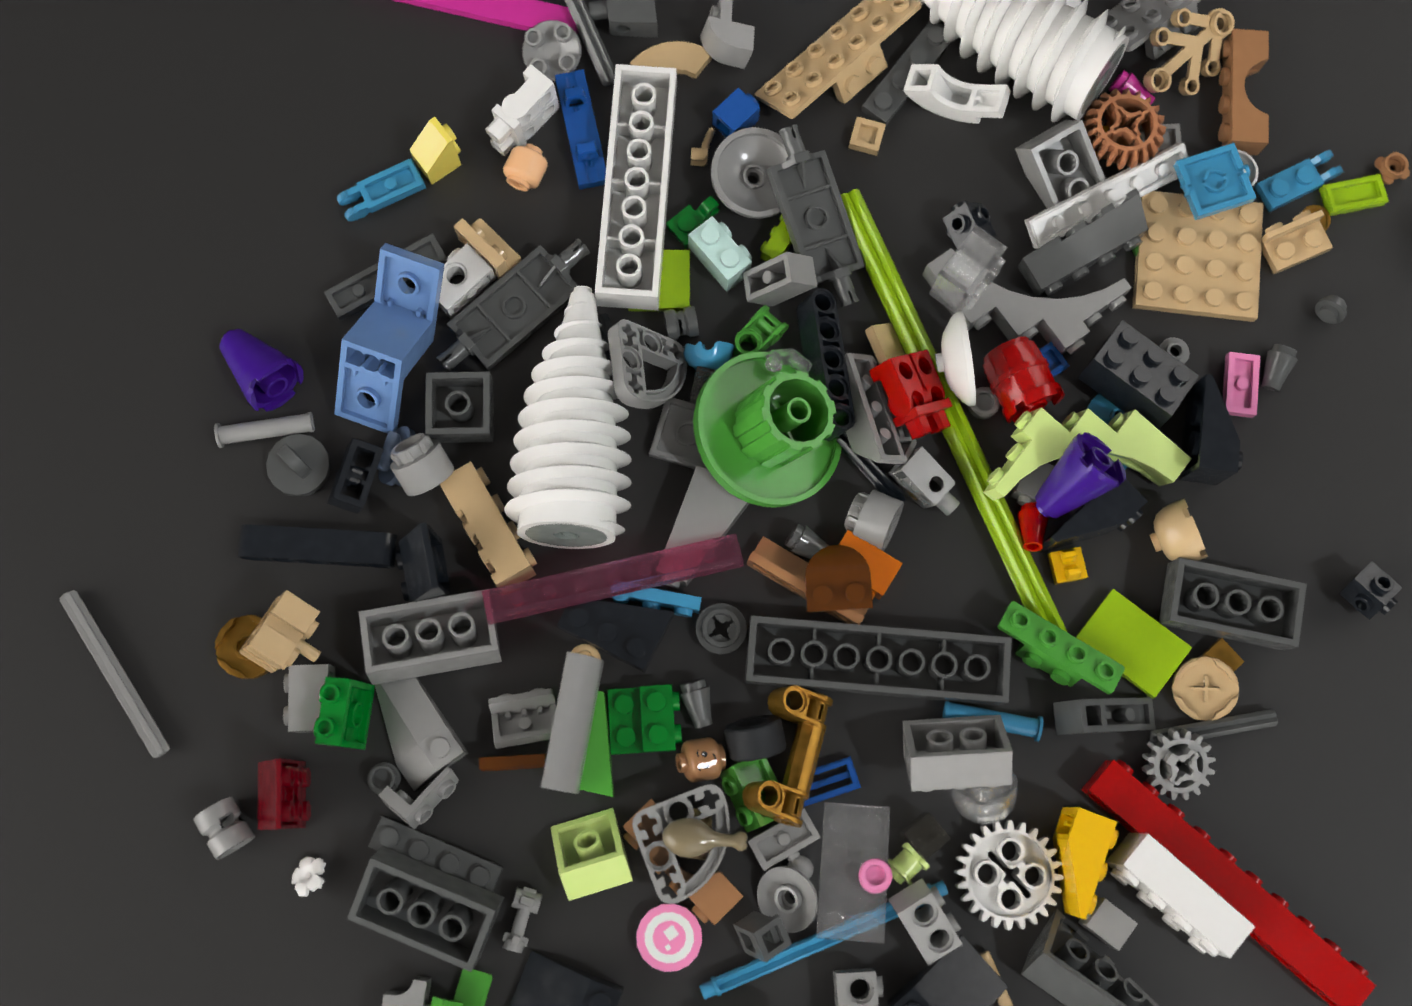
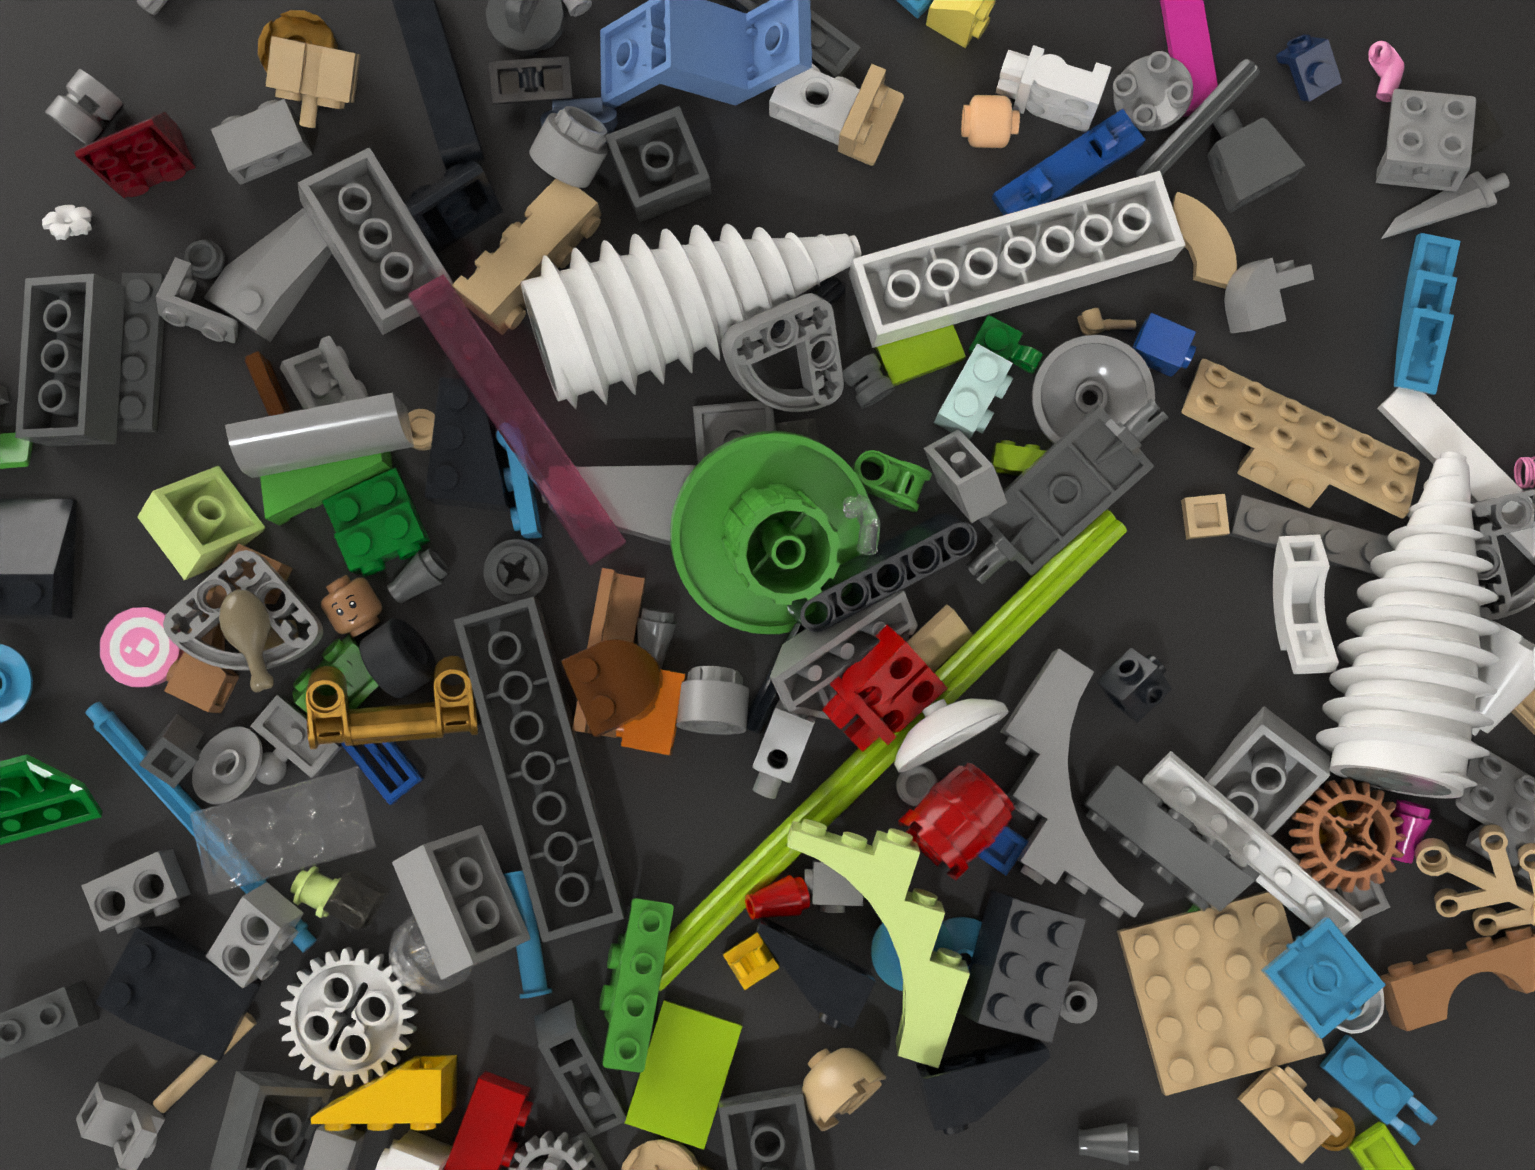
camera: 75 degrees right, 5 degrees up
(344, 713) = (250, 182): green plate -> none
(513, 307) = (808, 178): dark grey plate -> none
(526, 901) = (124, 472): light grey bar -> none
(713, 358) = (835, 428): dark azure hair -> none
(875, 876) = (282, 856): bright pink tile -> none
(969, 271) = (1062, 699): clear brick -> none
(1079, 477) = (851, 933): dark purple cone -> none
(1241, 384) = (1068, 1102): bright pink plate -> none

